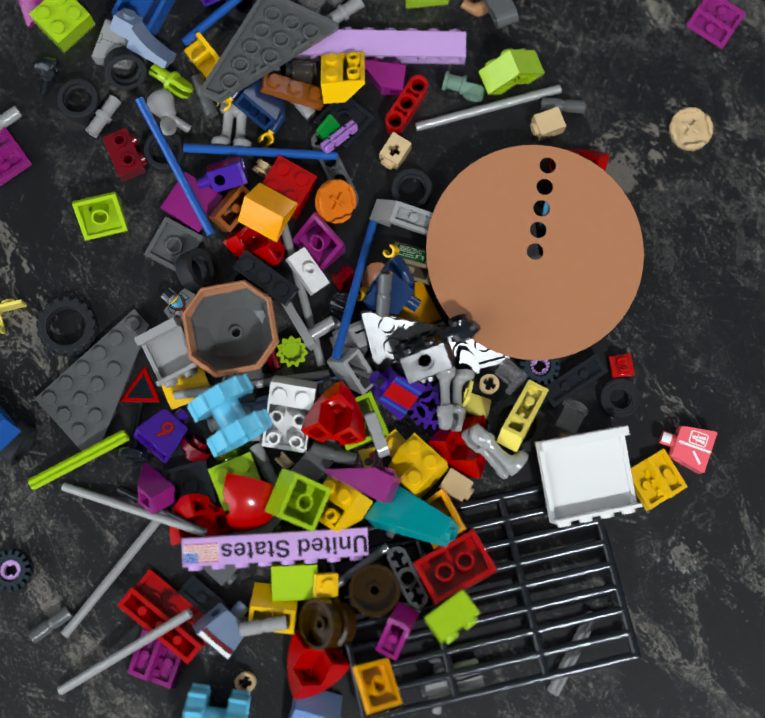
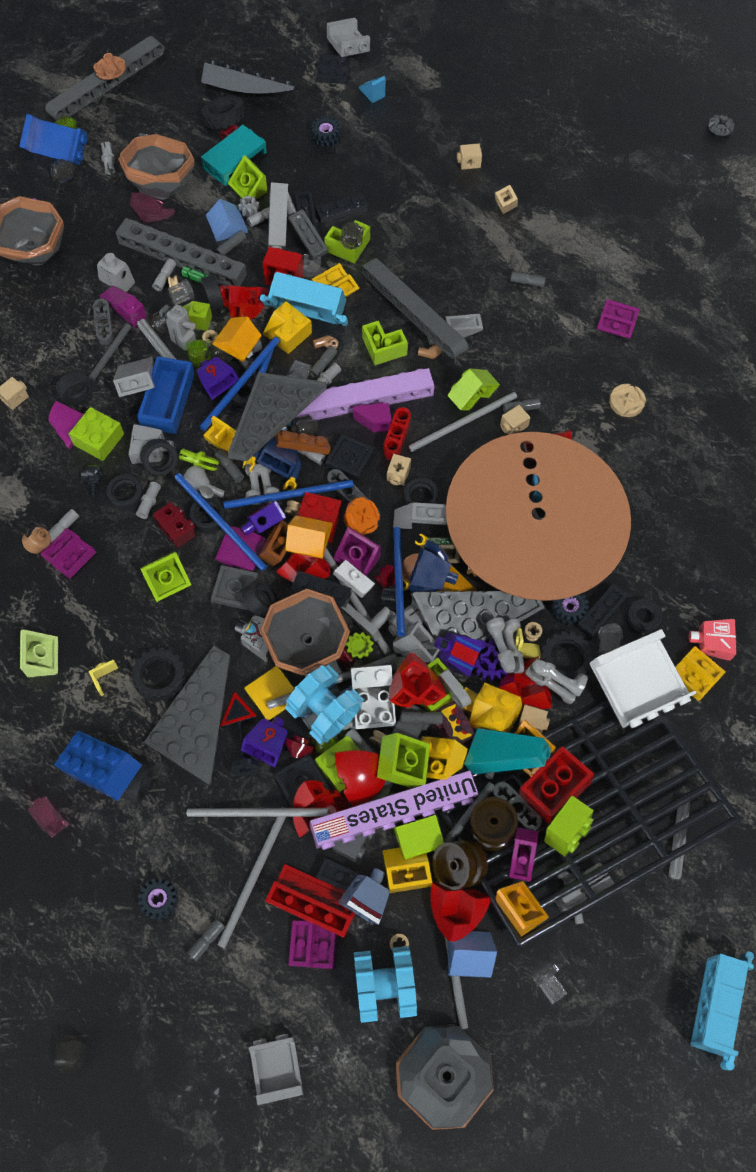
camera: 15 degrees left, 15 degrees down
(78, 459) = (196, 783): lime axle -> none
(125, 651) = (281, 944): light grey piece -> none
(134, 497) = (247, 802): black piece -> none
(141, 41) = (156, 421): sand blue slope -> none
(154, 490) = (273, 789): magenta slope -> none
(167, 352) = (254, 669): light grey panel -> none
(259, 626) = (402, 881): light grey piece -> none
(325, 585) = (448, 830): yellow plate -> none
(327, 127) = (340, 464): green slope -> none
(339, 136) = (350, 467): medium lavender axle -> none
(341, 75) = (339, 421): yellow slope -> none
(372, 481) = (463, 728): magenta slope -> none
(384, 291) = (426, 568): dark grey piece -> none
(432, 349) = (481, 608): black brick -> none
(458, 83) = (439, 410): sand green connector -> none
(467, 360) = (509, 612): tile -> none
(511, 375) = (549, 618): clear tile -> none
(522, 415) = (571, 646): light yellow slope -> none
(621, 366) = (636, 590): red tile -> none

